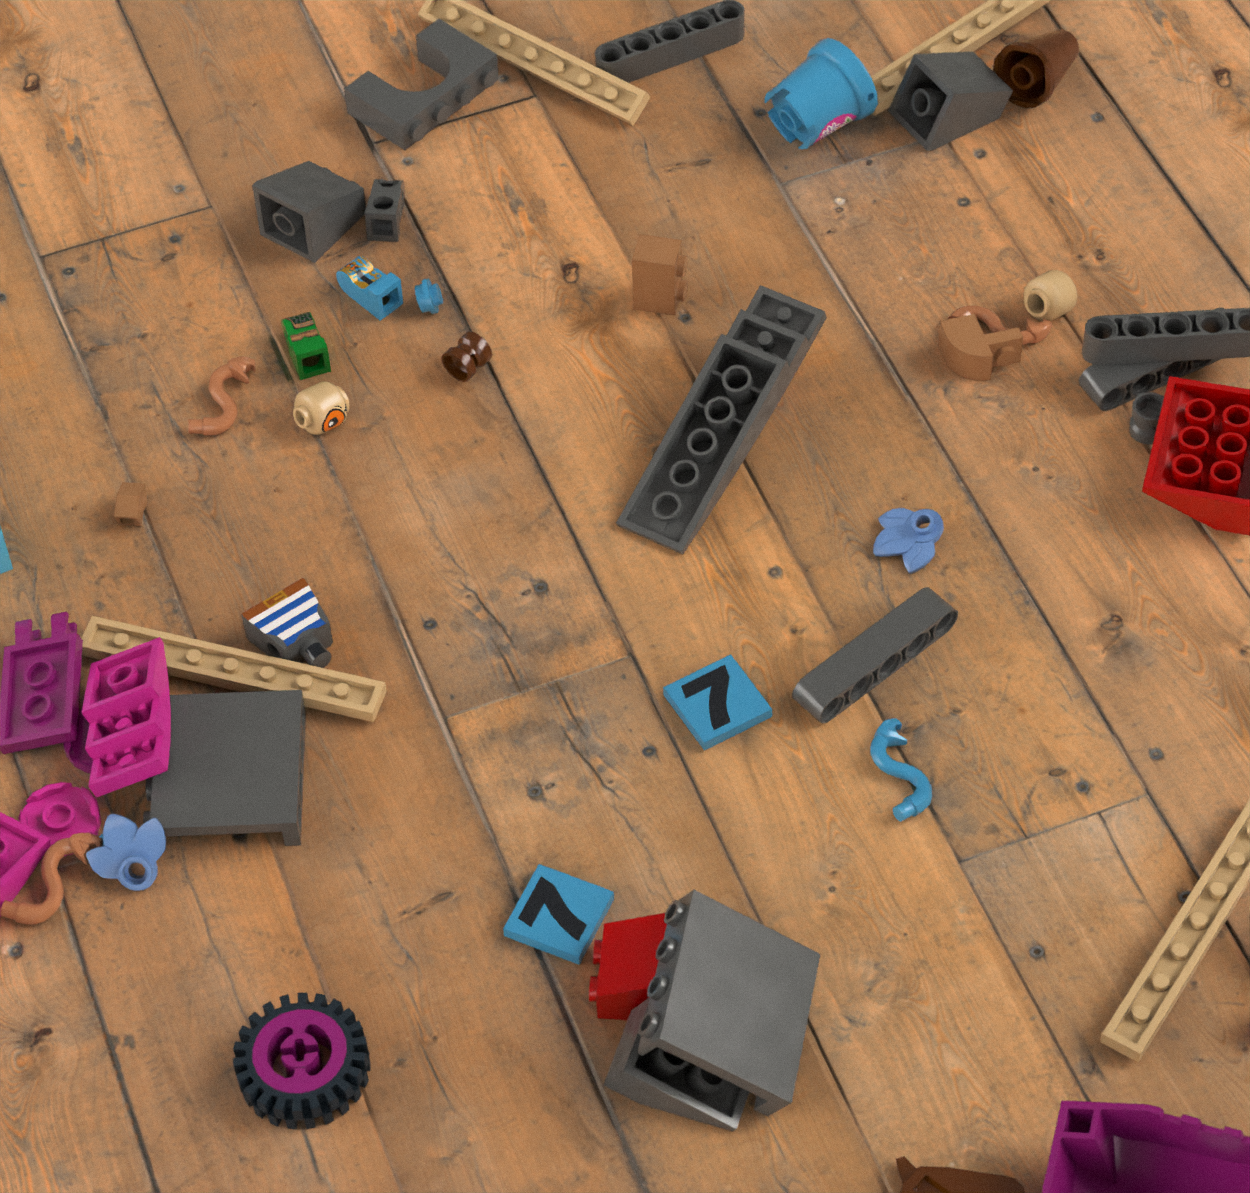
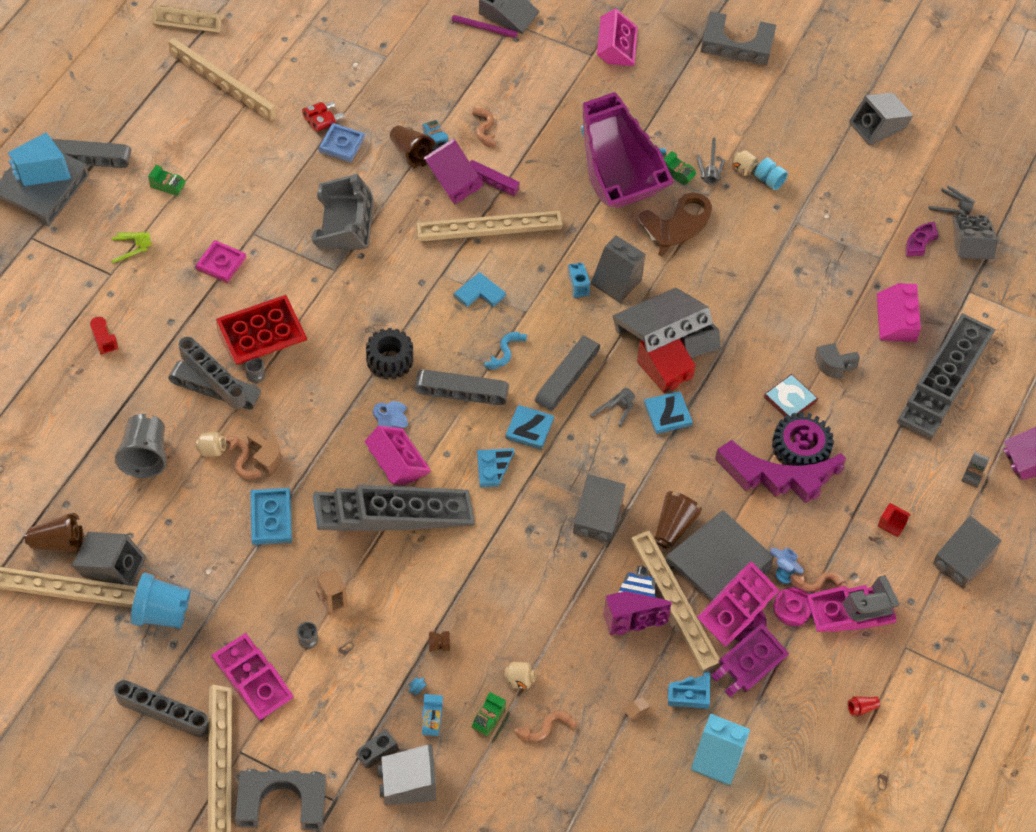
camera: 135 degrees left, 5 degrees up
(34, 1080) = (893, 520): none -> red panel
(81, 583) = (690, 692): none -> dark azure wing
(267, 564) = (634, 611): none -> magenta slope
(327, 938) = (777, 478): none -> magenta arch
(355, 762) = (675, 518): none -> reddish brown cone
(405, 1126) = (790, 397): none -> tile
(472, 671) = (599, 508): none -> dark grey slope
(624, 229) = (309, 631): none -> dark grey wheel
(625, 152) = (252, 676): none -> dark pink slope
(642, 864) = (622, 399): none -> dark grey plant
(693, 608) = (493, 465): none -> dark azure wing
(769, 820) = (567, 373): none -> dark grey beam
(822, 496) = (396, 455): none -> dark pink slope
(865, 305) = (271, 516): none -> dark azure tile
(911, 1041) = (619, 269): none -> dark grey slope
(956, 975) = (579, 280): none -> dark azure leg
(1031, 570) = (389, 365): none -> black tyre
(1067, 823) = (479, 287): none -> dark azure tile
(1106, 203) = (142, 447): none -> dark grey piece

